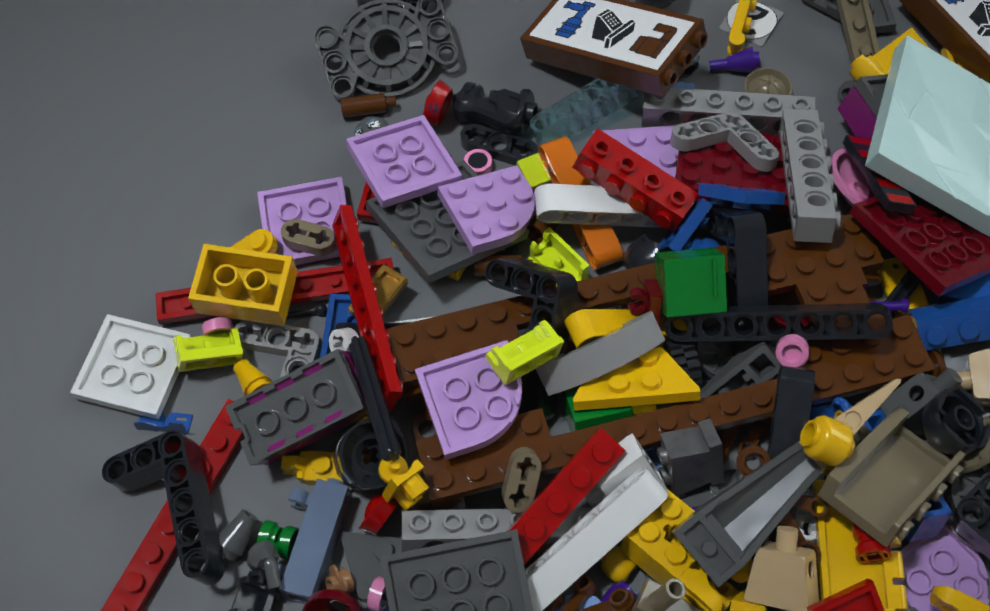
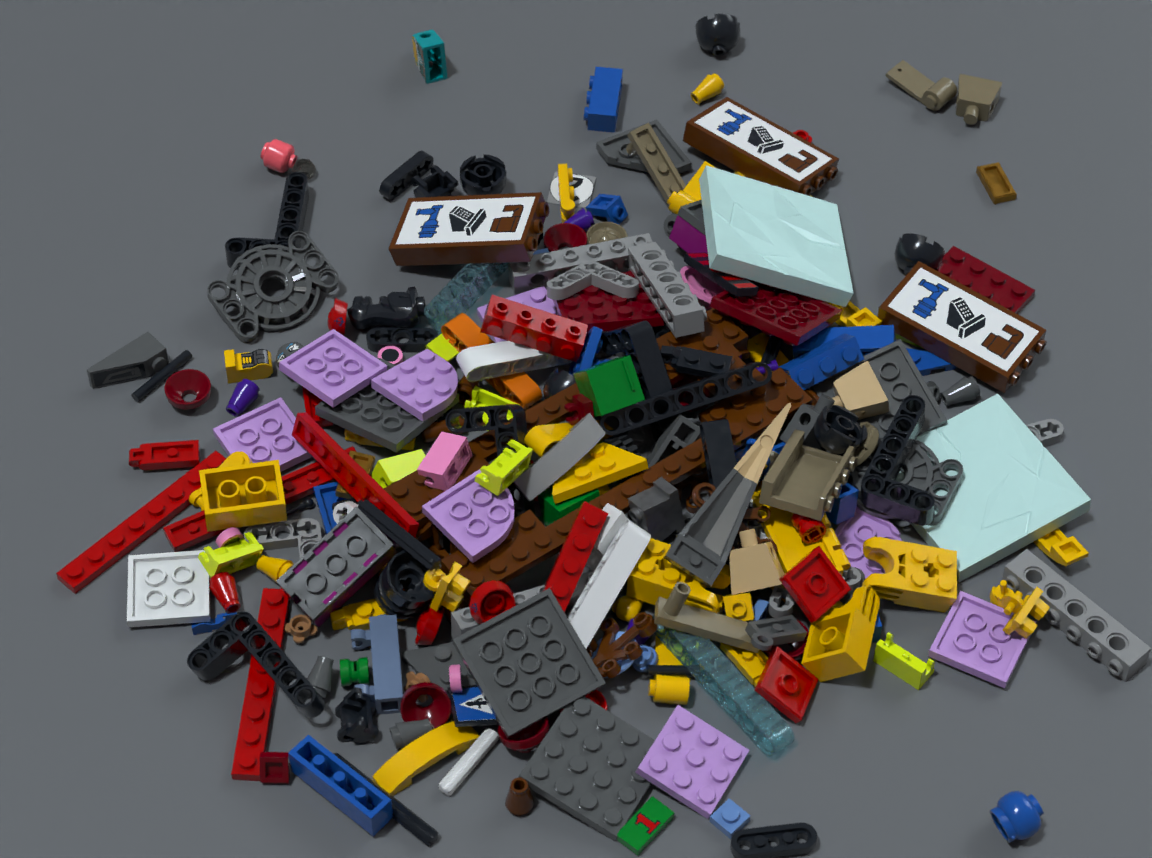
camera: 25 degrees left, 10 degrees down
(131, 283) = (135, 528): none -> red plate
(187, 389) = (225, 591): none -> red cone
(199, 207) = (165, 455): none -> red hinge
(213, 91) = (132, 362): none -> dark grey slope
(237, 114) = (161, 375): none -> black bar
(241, 470) = (297, 623): none -> medium nougat plate
(249, 131) = (187, 382): none -> dark red piece
(264, 556) = (353, 678): dark grey plate -> none
(304, 164) = (243, 396): none -> dark purple cone
(308, 237) = (276, 448): dark tan beam -> none
(324, 128) = (248, 365): none -> yellow leg
(366, 105) = (275, 337): reddish brown cylinder -> none
(428, 302) = (396, 467): none -> neon yellow hinge
(446, 521) = (490, 600): none -> red hat
(465, 319) = (445, 461): none -> bright pink hinge
(514, 478) = (535, 560): dark tan beam -> none
(719, 72) = (564, 236): none -> dark red piece
(741, 197) = (623, 316): blue plate -> none
(783, 52) = (609, 207): none -> blue bracket
(792, 351) = (703, 412): bright pink tile -> none
(808, 278) = (695, 361): none -> black hinge
(827, 440) = (753, 458): yellow head -> none

